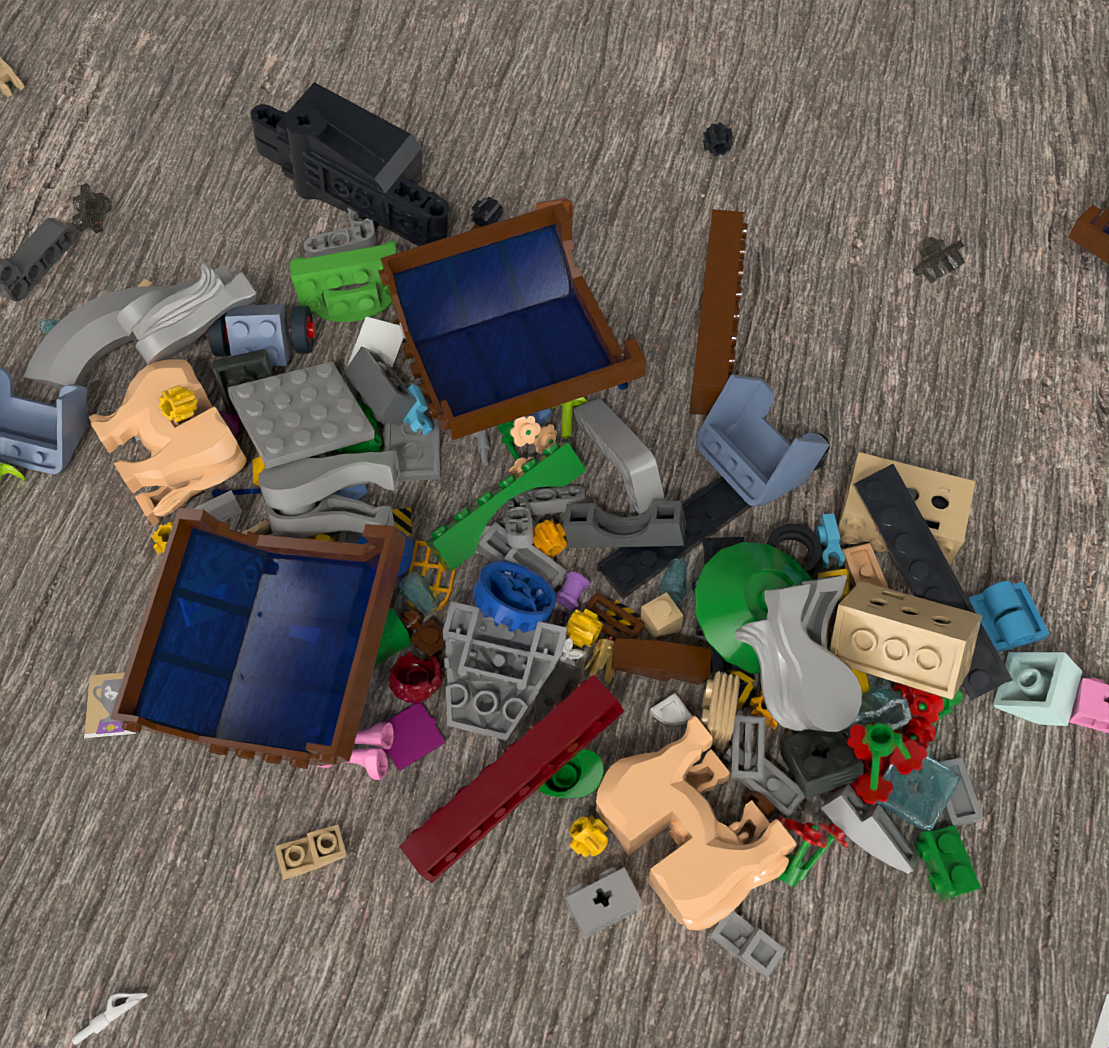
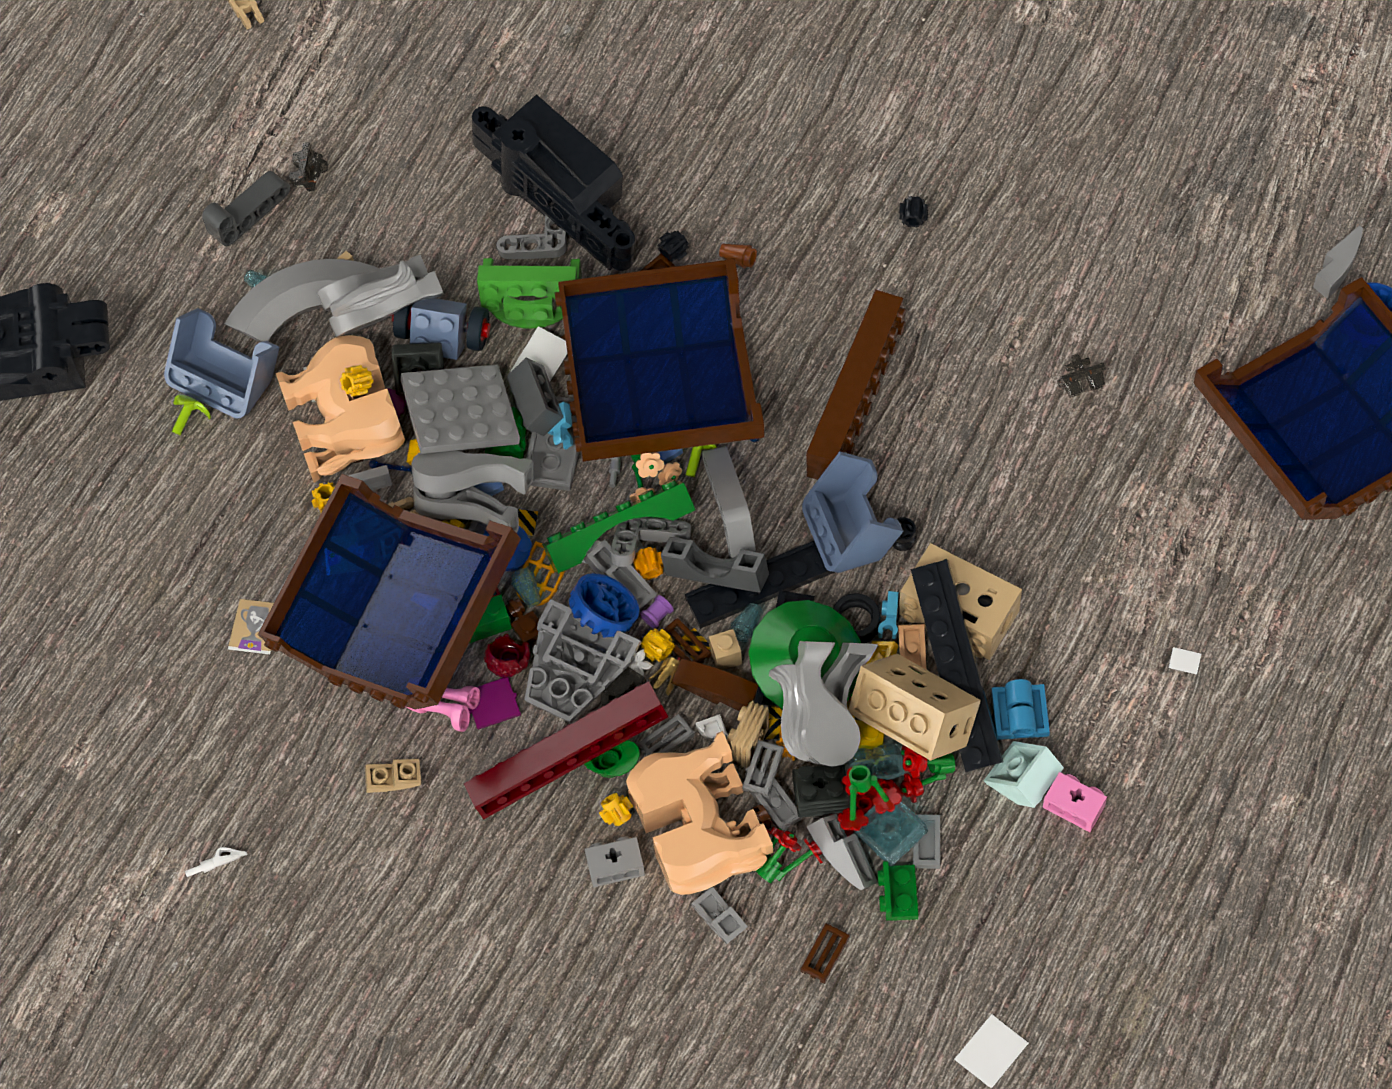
camera: 15 degrees right, 0 degrees up
(606, 755) = (689, 734): none -> light grey tile
(881, 990) = (814, 973): none -> reddish brown tile

